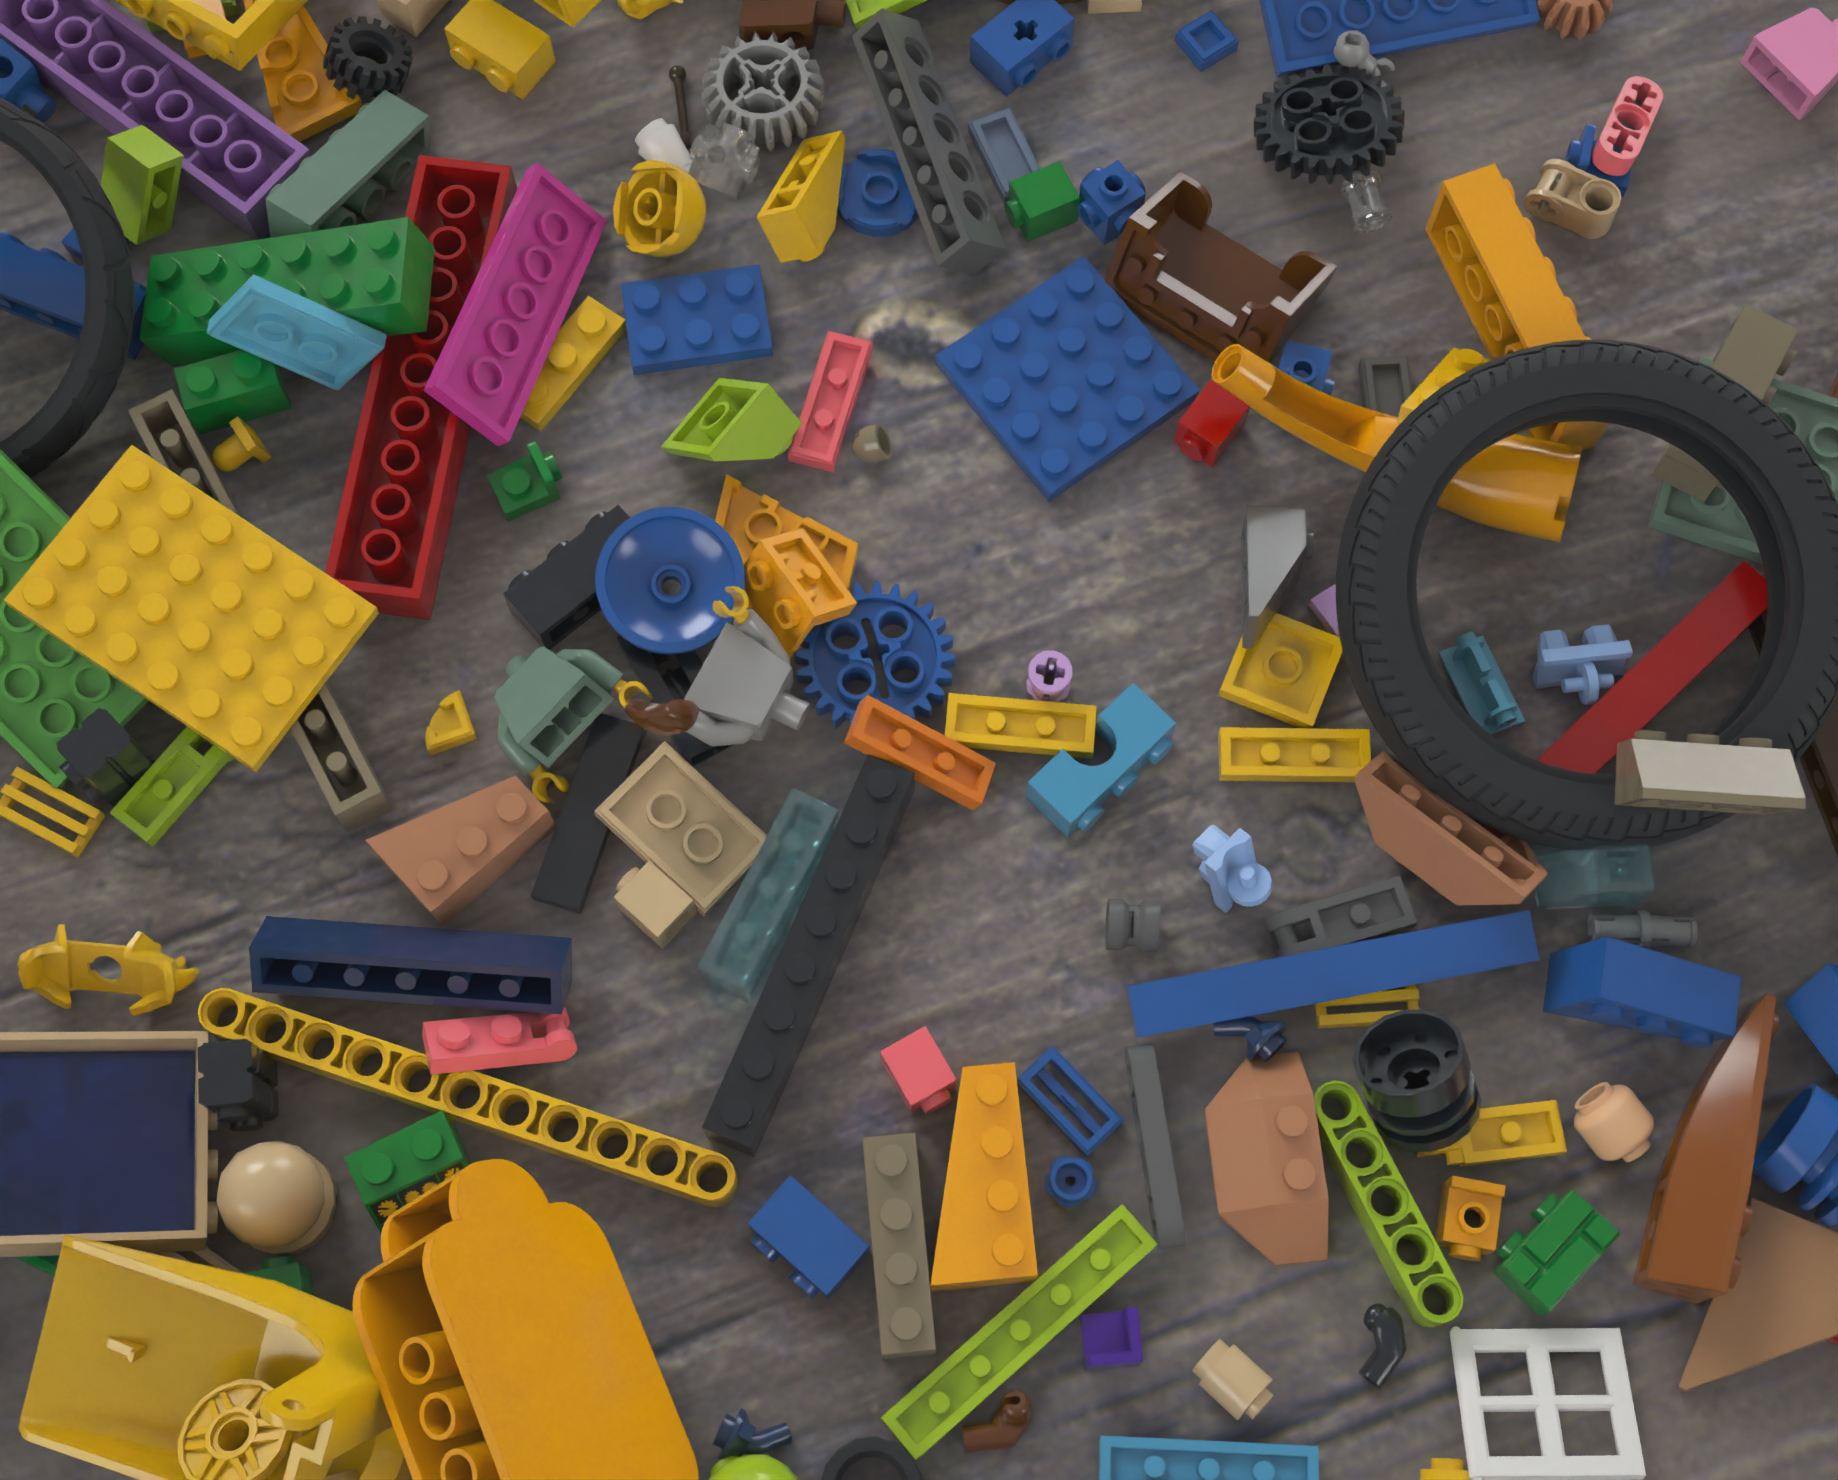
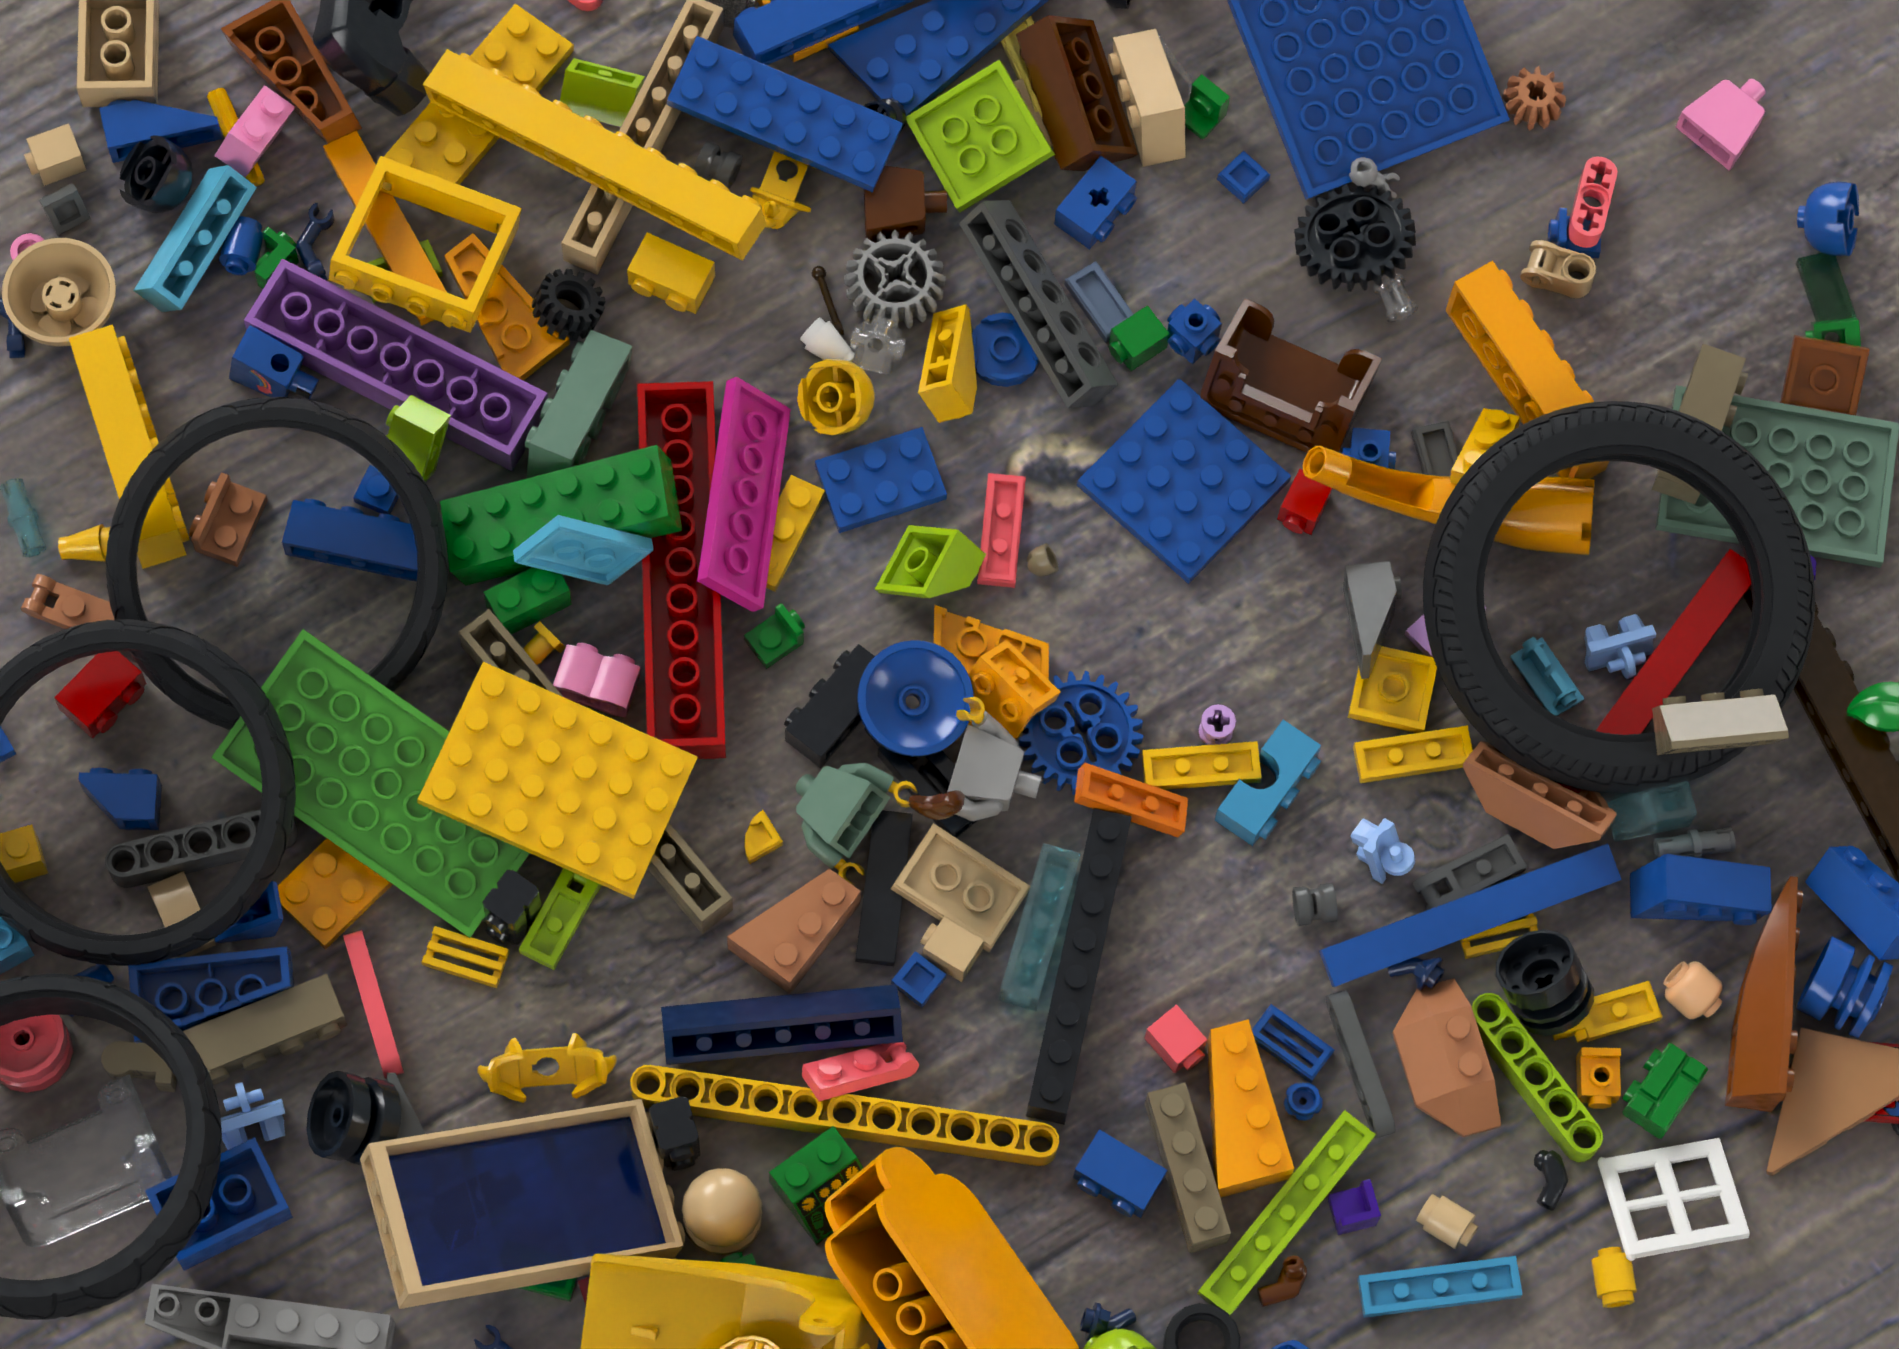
camera: 15 degrees left, 0 degrees up
(291, 498) = (597, 679): none -> bright pink brick
(604, 936) = (918, 979): none -> blue plate

